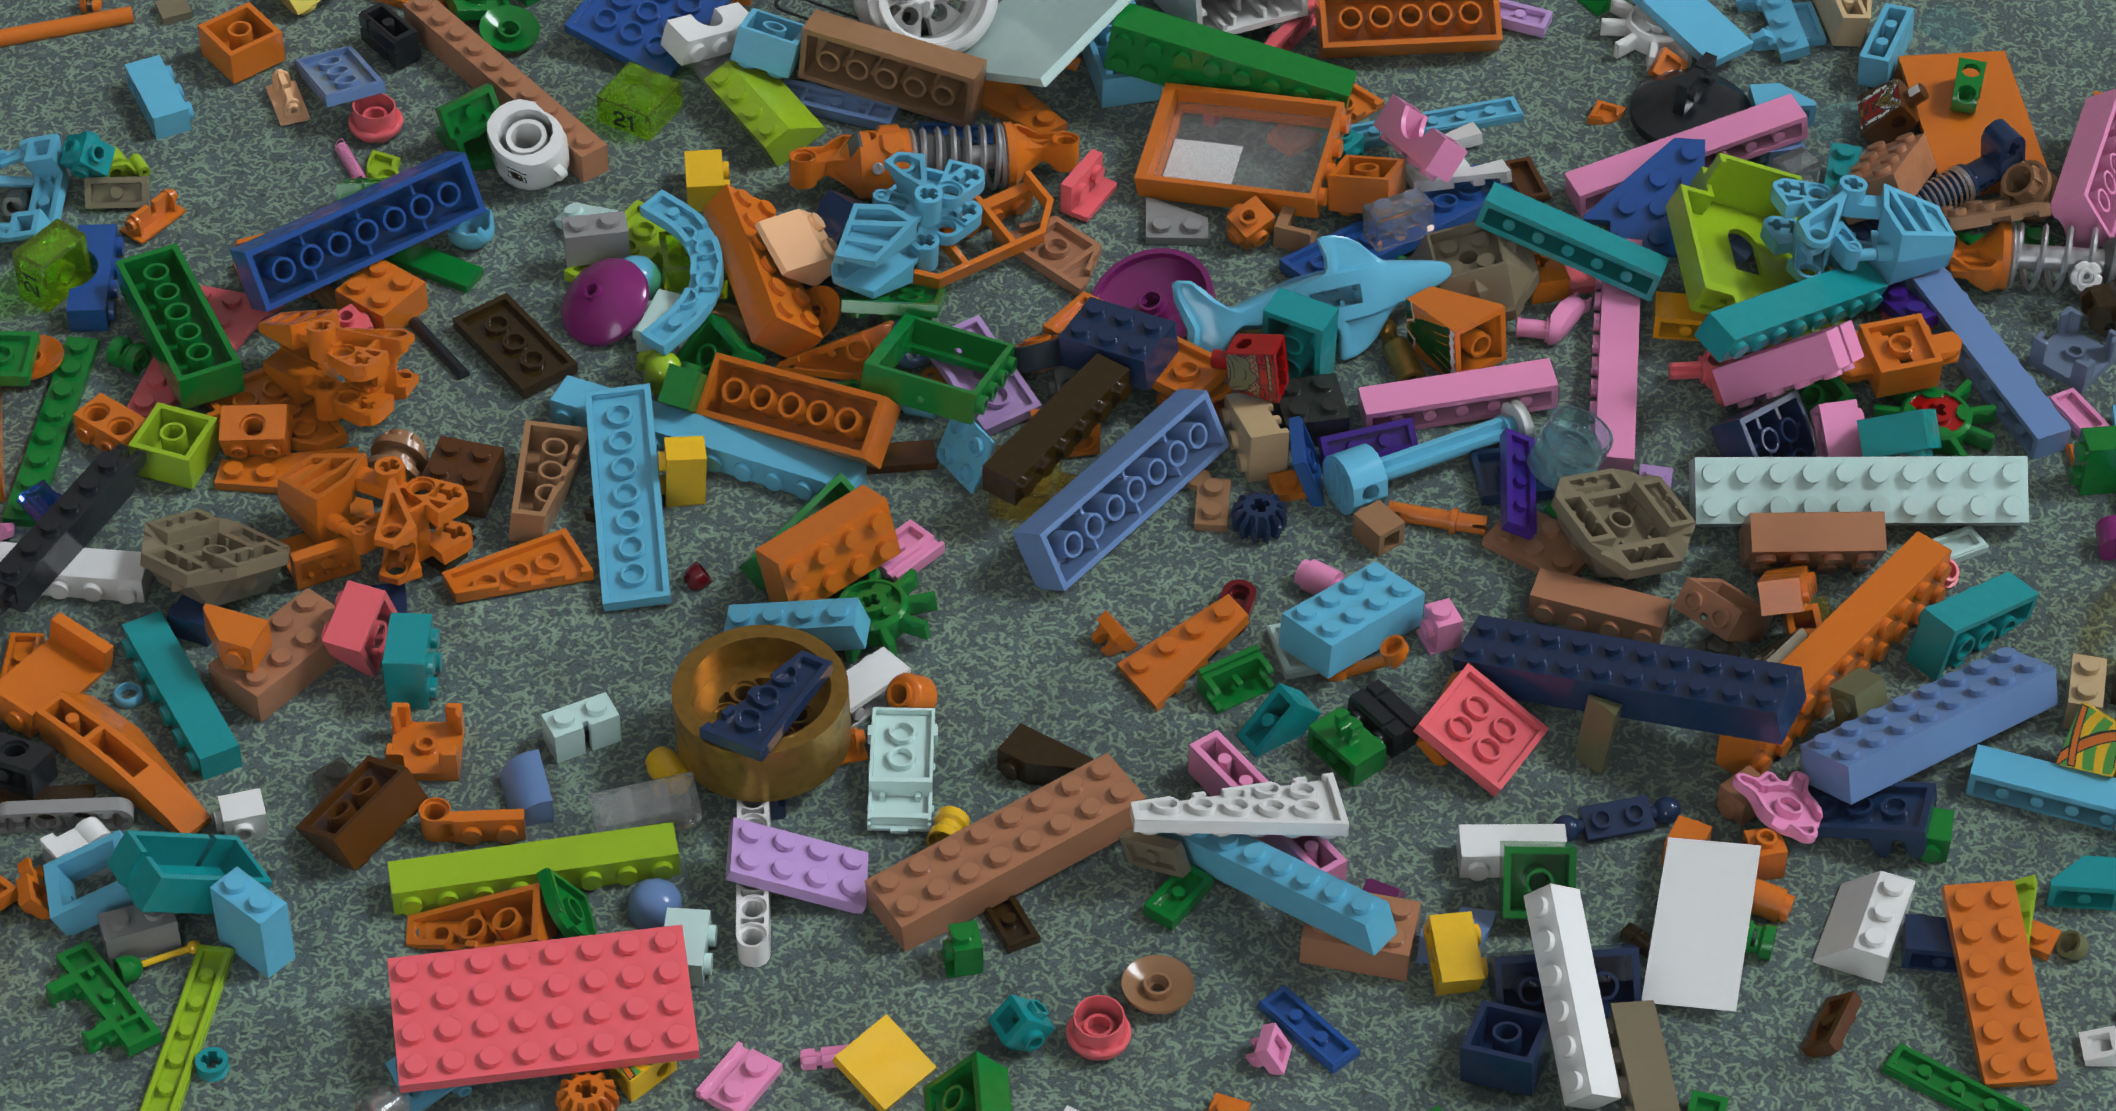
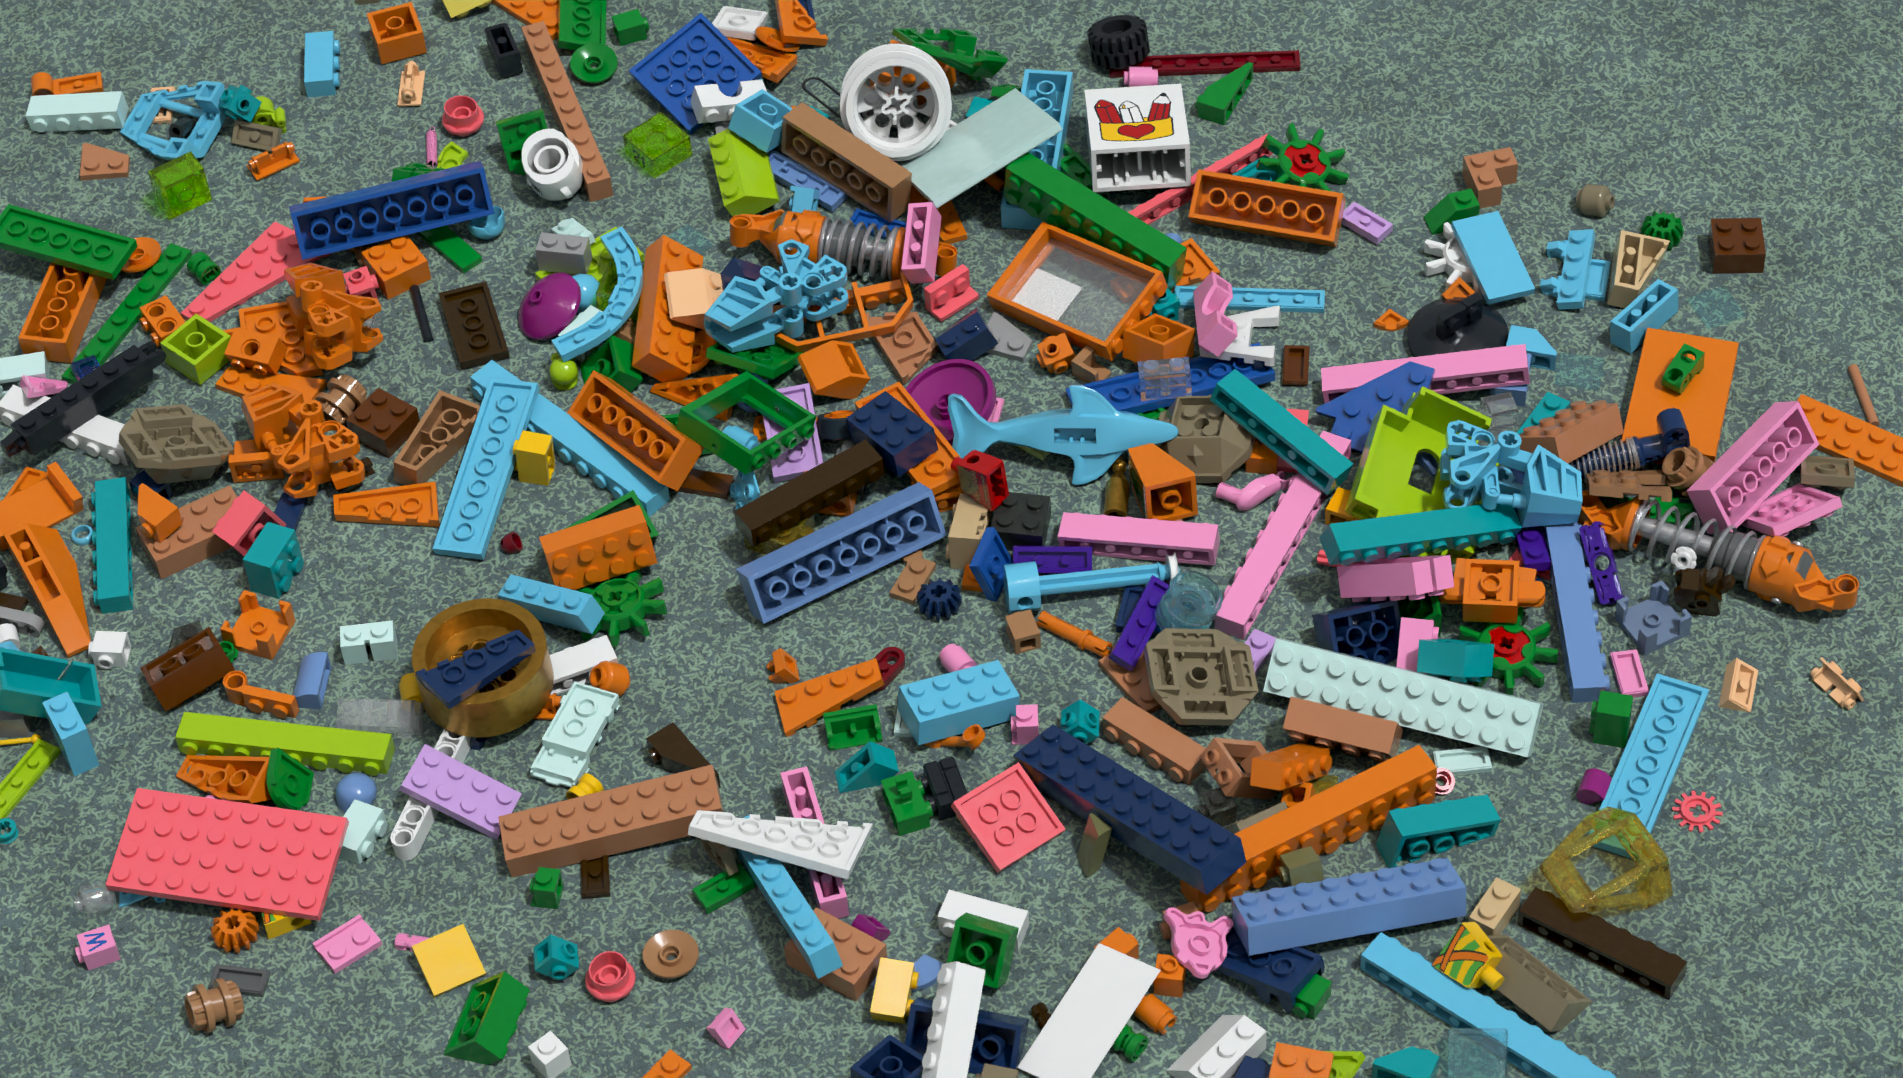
camera: 25 degrees right, 5 degrees up
(92, 304) = (198, 221): blue arch -> none
(180, 326) = (239, 256): green brick -> none
(339, 76) = (451, 76): medium blue tile -> none
(683, 386) = (562, 390): green brick -> none
(704, 176) = (673, 219): yellow brick -> none
(856, 119) = (804, 199): none -> medium azure brick
(917, 551) = (673, 561): bright pink plate -> none
(999, 295) = (834, 370): none -> orange slope
(1041, 131) = (921, 242): none -> bright pink brick
(1134, 226) = (966, 337): none -> dark blue slope
(1308, 331) = (1031, 461): teal brick -> none
(1308, 1029) = (764, 1019): blue tile -> none
(1509, 603) = (1081, 721): none -> teal brick
(1619, 818) = (1077, 916): dark blue plate -> none
(1889, 110) = (1612, 375): torso -> none
(1979, 287) = (1595, 546): none -> dark purple piece

